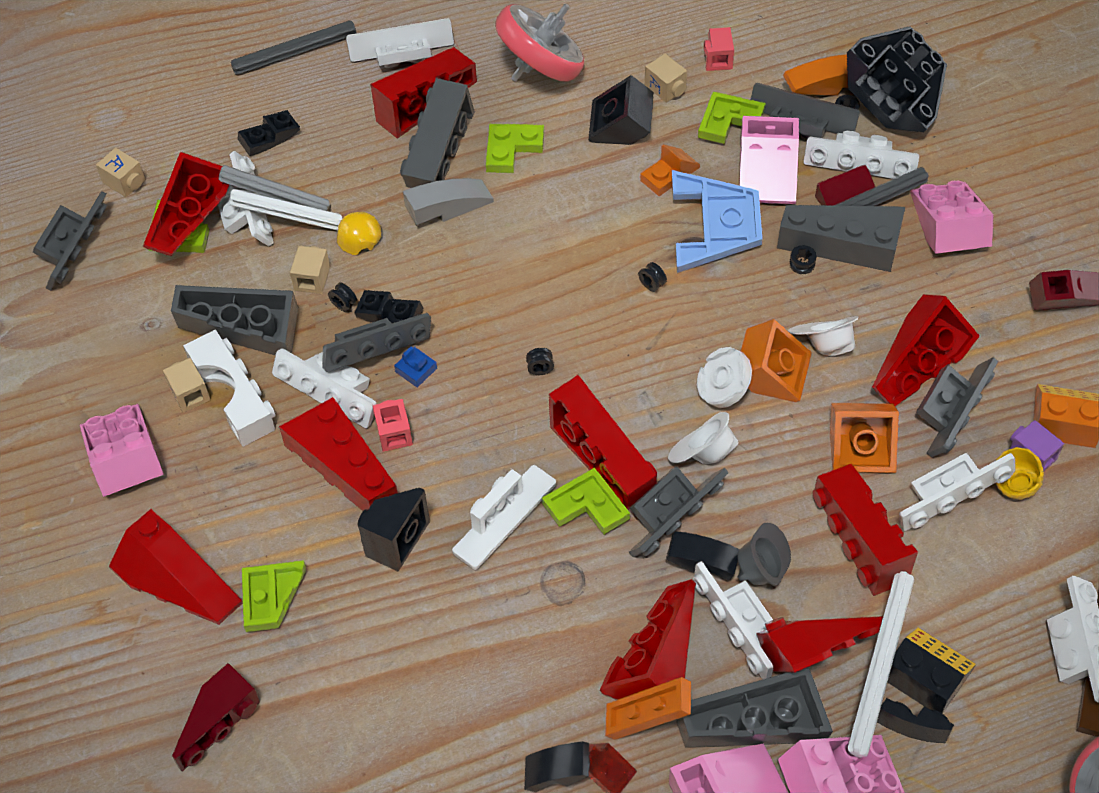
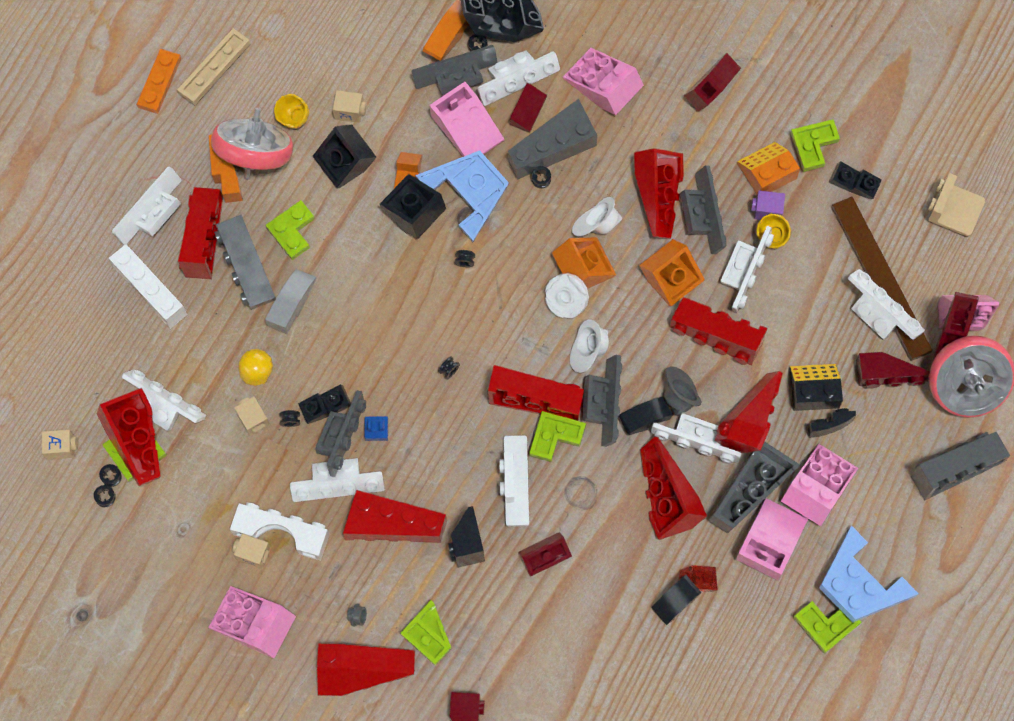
camera: 40 degrees left, 15 degrees up
(62, 238) = (70, 516): dark grey bracket -> none
(114, 236) = (106, 503): none -> black bush
(133, 225) = (103, 472): none -> black bush
(220, 520) = (357, 615): none -> dark grey plate
(244, 316) = (244, 481): dark grey wedge -> none
(270, 188) = (178, 381): light grey axle -> none
(273, 131) = (125, 340): black slope -> none
(285, 209) = (198, 388): white axle -> none
(292, 47) = (76, 264): dark grey axle -> none
(330, 101) = (148, 285): none -> white arch
(392, 424) = (397, 468): coral brick -> none
(464, 612) = (545, 554): none -> dark red slope
(493, 64) = (225, 173): none -> orange slope
(607, 47) = (291, 111): none -> yellow hair
(645, 196) = (413, 206): none -> black slope
(648, 708) = (698, 530): orange plate -> none
(719, 49) = (363, 58): coral brick -> none
(723, 112) = (406, 105): lime plate -> none
(880, 665) = (795, 406): white axle -> none
(889, 189) = (550, 95): dark grey axle -> none
(1033, 712) = (883, 369): none -> dark red slope

